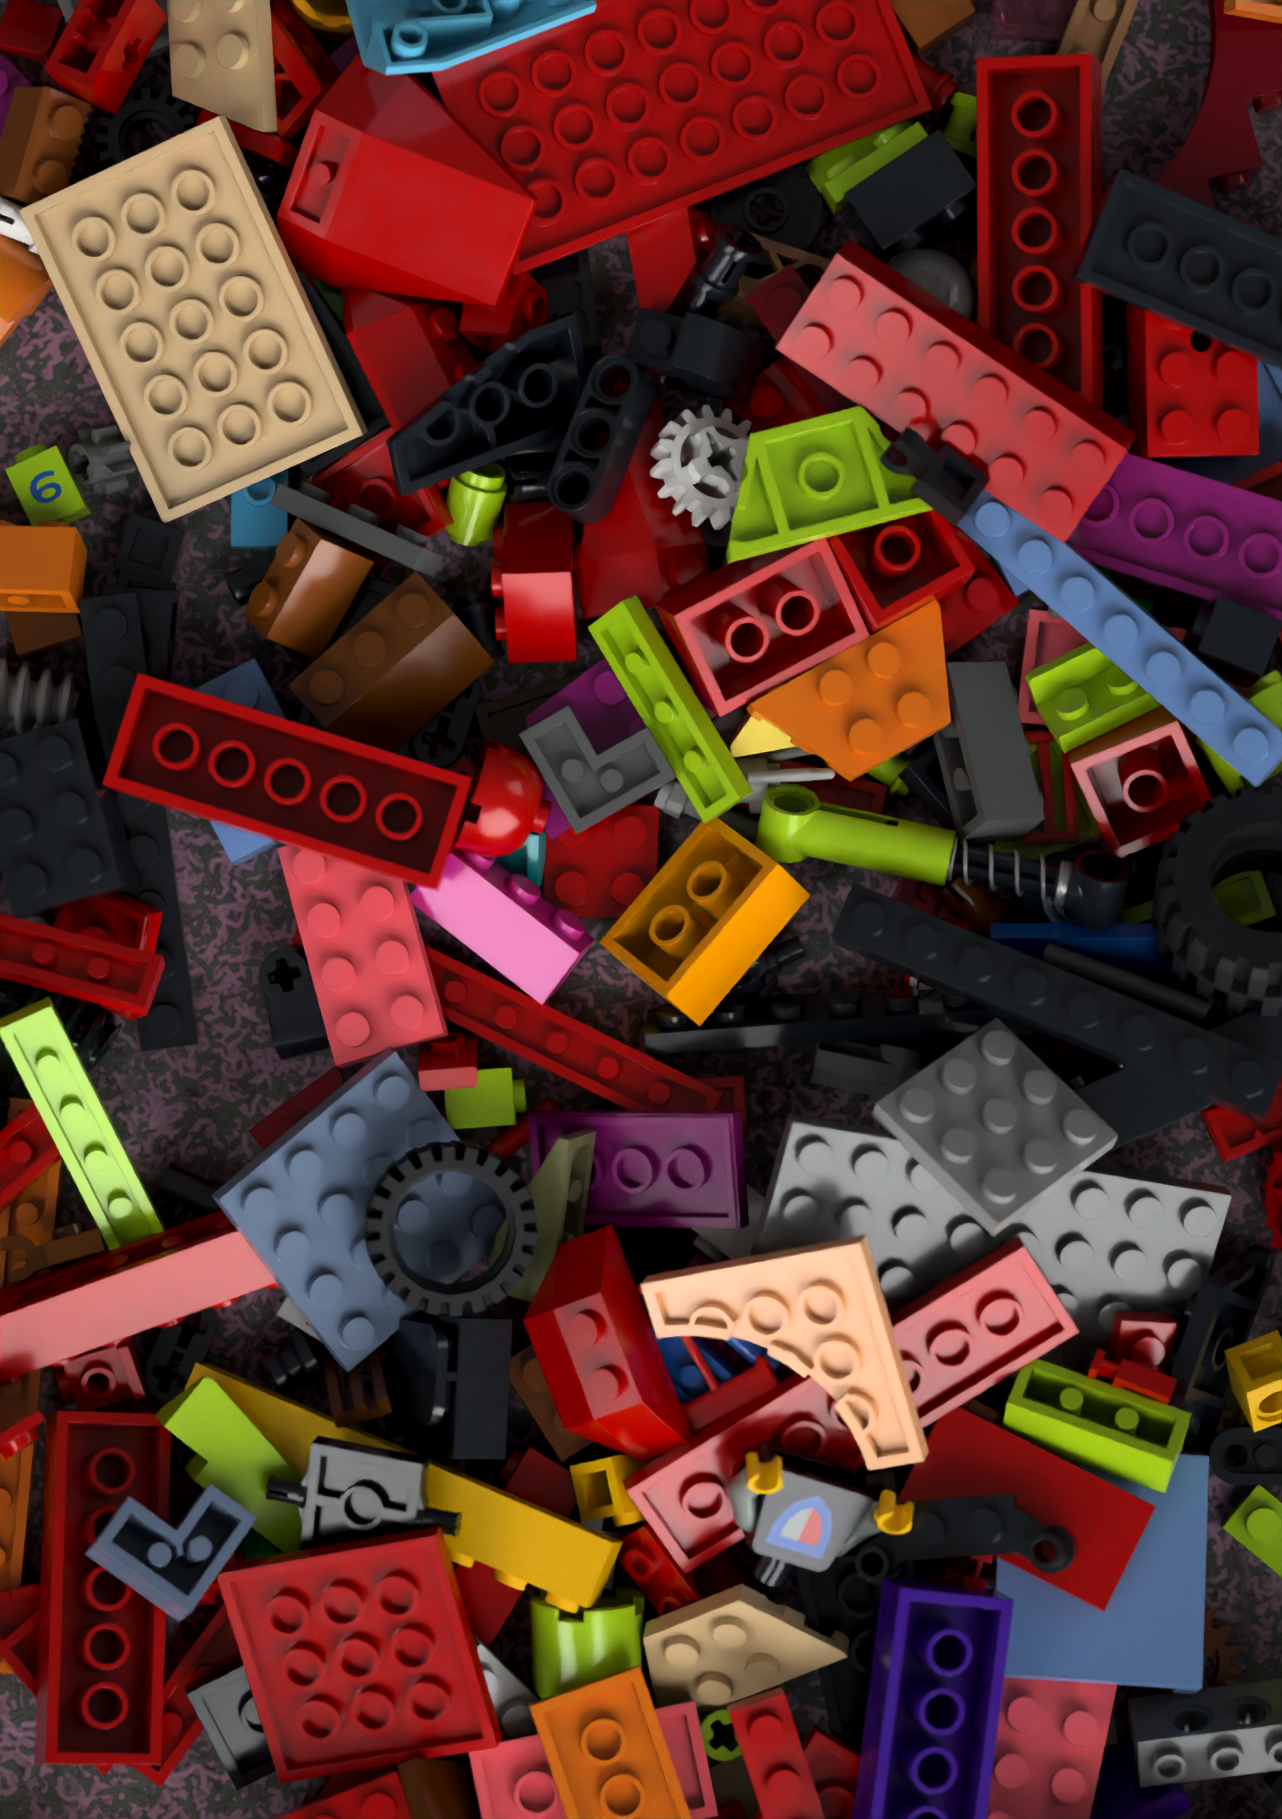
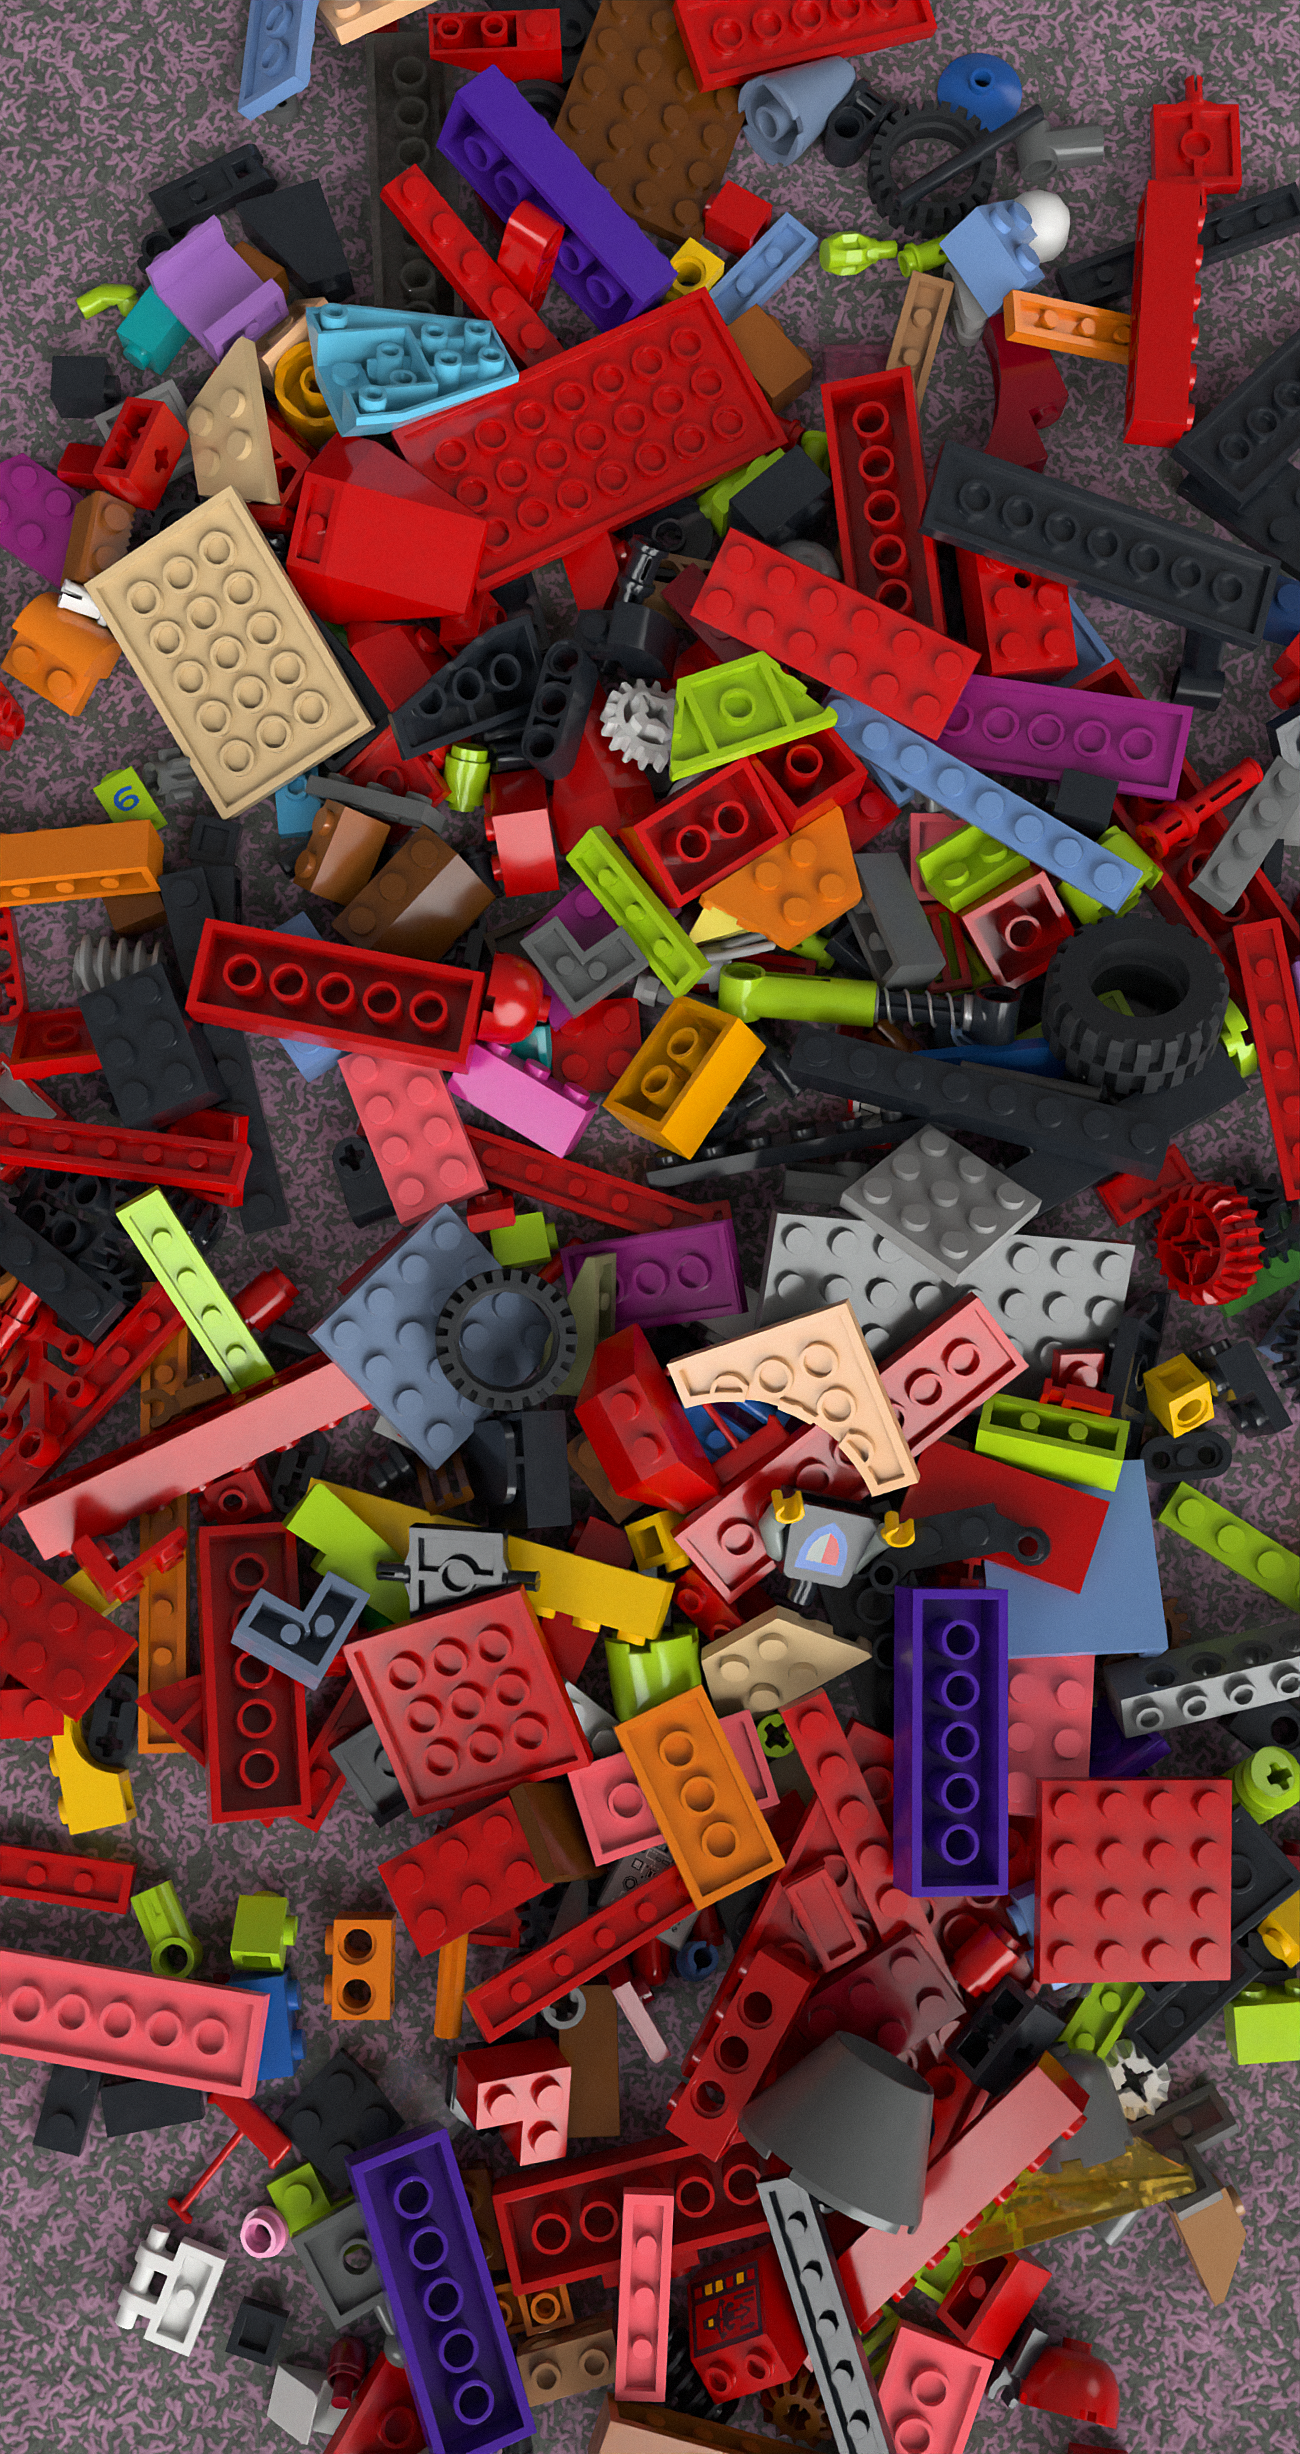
camera: 10 degrees left, 5 degrees down
(159, 1134) = (265, 1299): none -> red brick
(824, 896) = (775, 1057): none -> black pin
(943, 476) = (834, 693): black plate -> none

